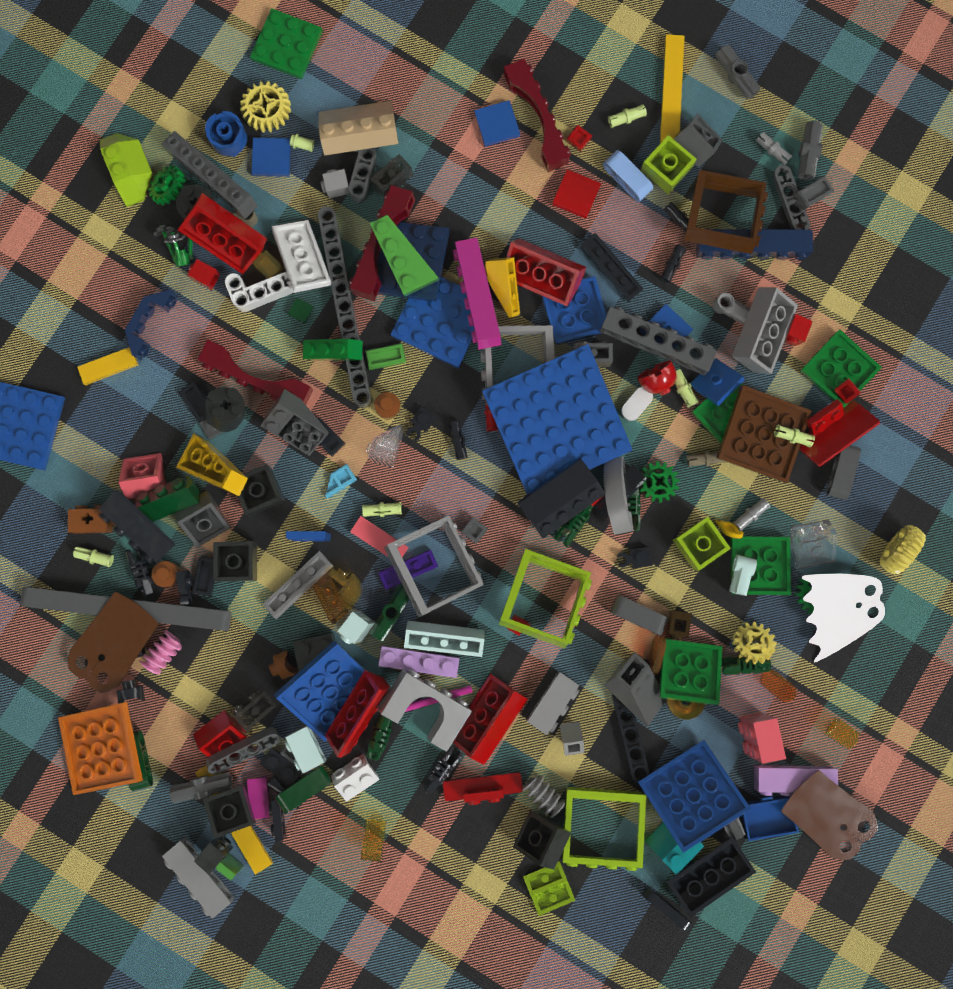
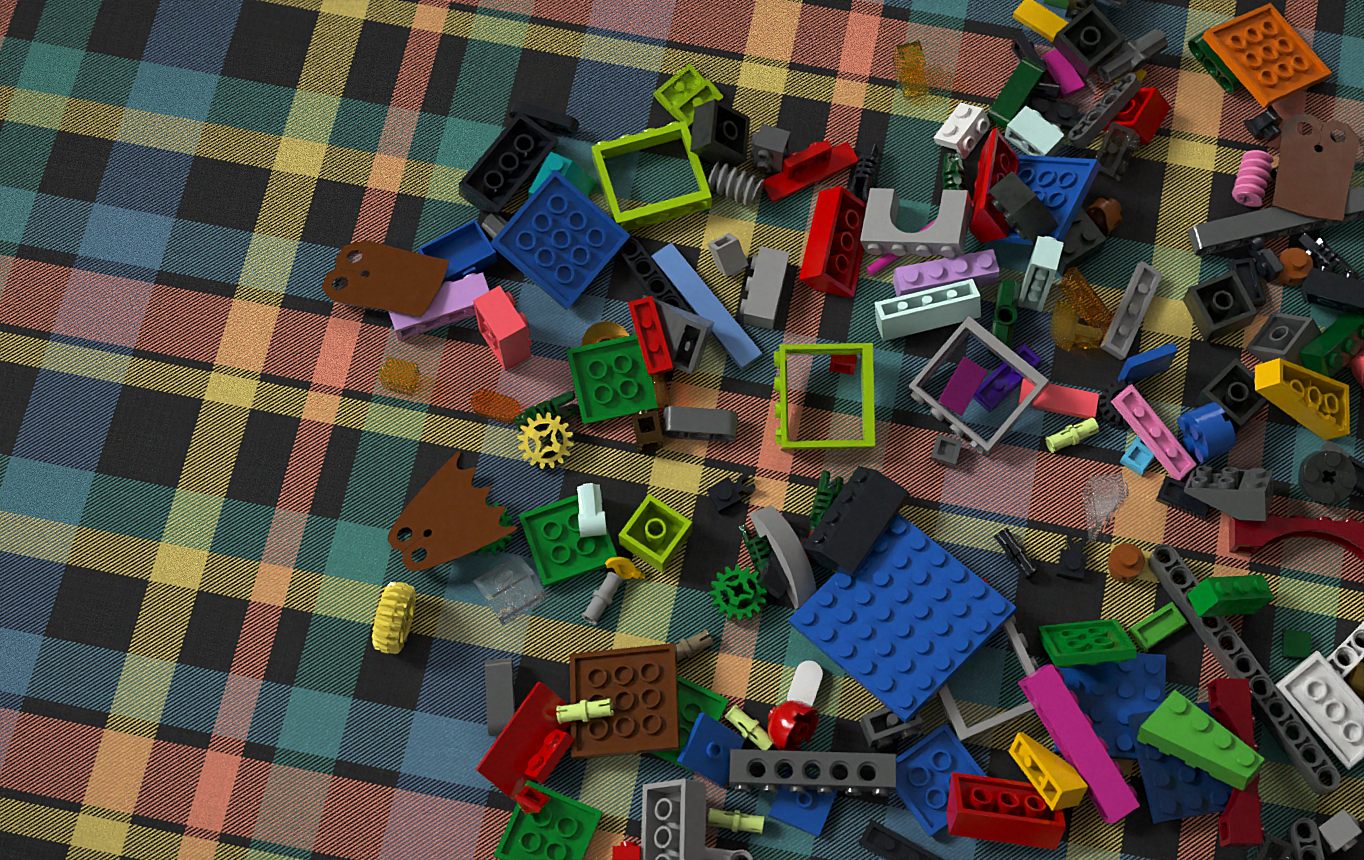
camera: 160 degrees right, 15 degrees down
(291, 471) = (1206, 432): none -> blue brick
(327, 486) = (1153, 432): none -> bright pink tile
(329, 509) = (1107, 408): none -> black tyre
(349, 679) = (1022, 208): none -> pearl dark grey brick
(442, 355) = (1087, 643): none -> green plate
(447, 565) = (962, 386): none -> magenta slope
(509, 812) = (769, 149): none -> dark grey brick
(600, 707) = (706, 305): none -> medium blue tile
(656, 689) = (650, 336): none -> red plate
(715, 333) = (735, 821): none -> yellowish green pin

